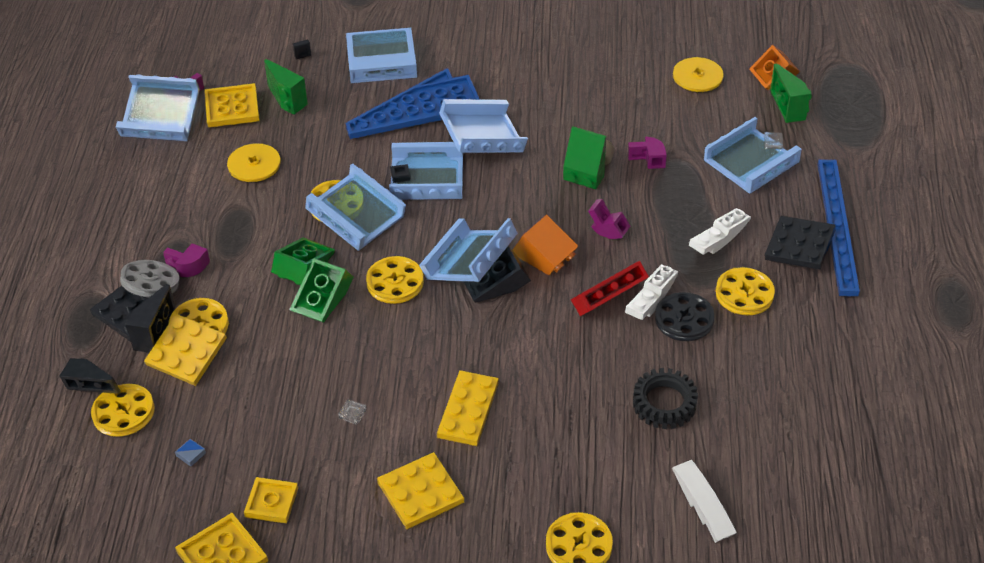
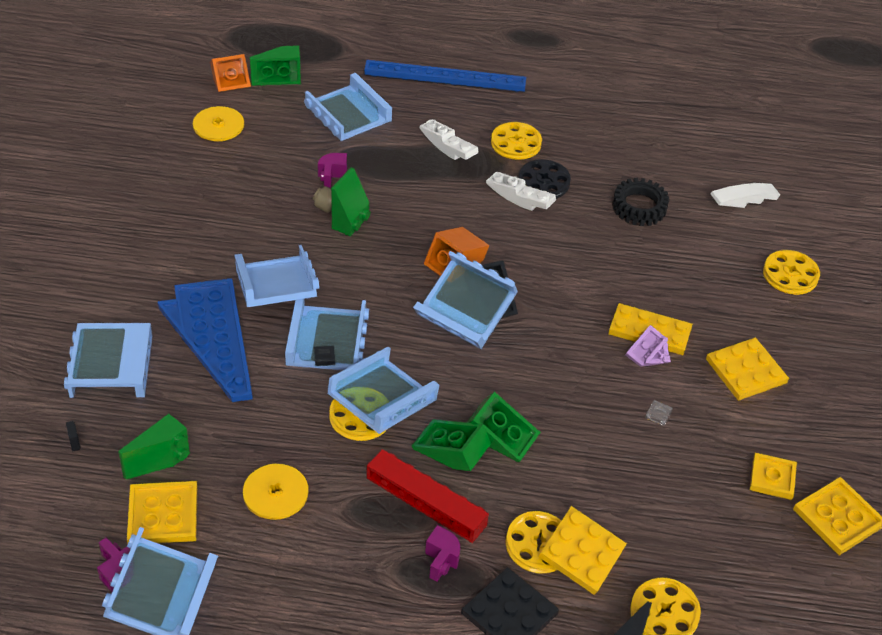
camera: 90 degrees left, 0 degrees up
(148, 277) = (482, 589): light grey wedge -> none
(150, 319) = (548, 574): black slope -> none
(190, 452) = (717, 546): sand blue tile -> none
(245, 247) = (427, 495): none -> red brick
(401, 284) = (477, 373): yellow wedge -> none
(433, 401) = (650, 349): none -> lavender slope
(606, 223) = (428, 206): magenta brick -> none
(609, 288) = (517, 215): red brick -> none
(773, 140) = (330, 92): clear tile -> none
(800, 242) = (465, 98): black plate -> none

